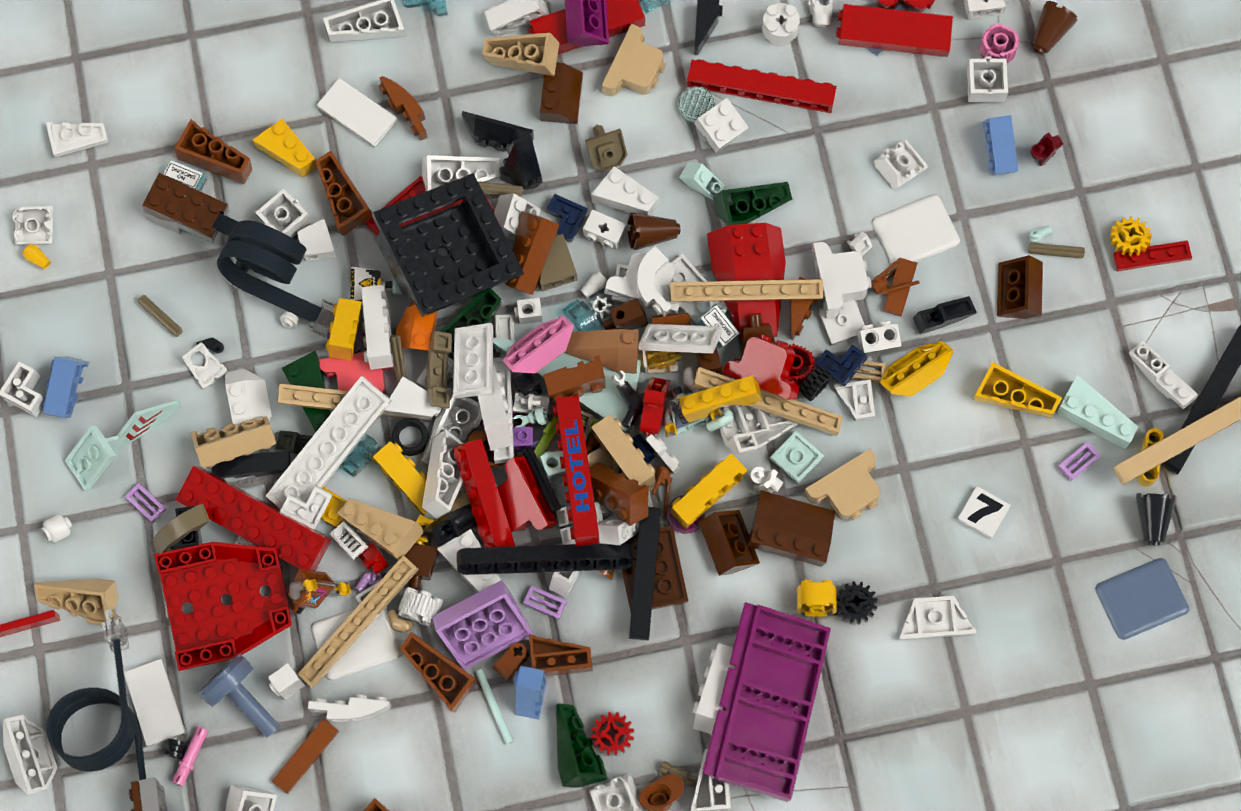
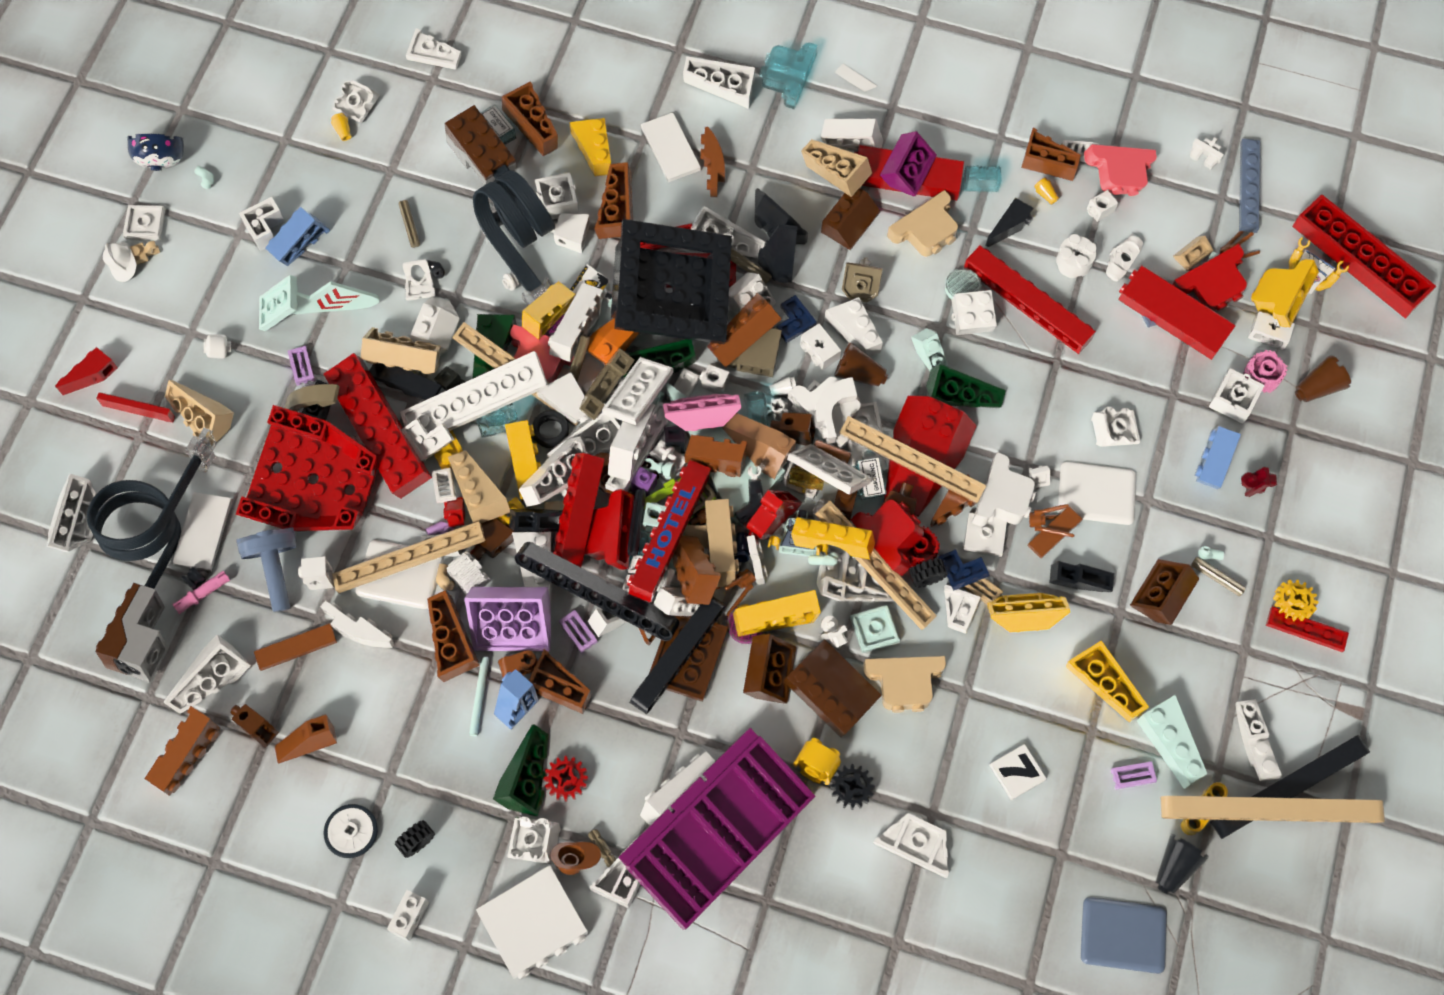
camera: 25 degrees right, 5 degrees down
(312, 588) = (388, 508): torso -> none
(879, 341) = (1008, 569): white brick -> none

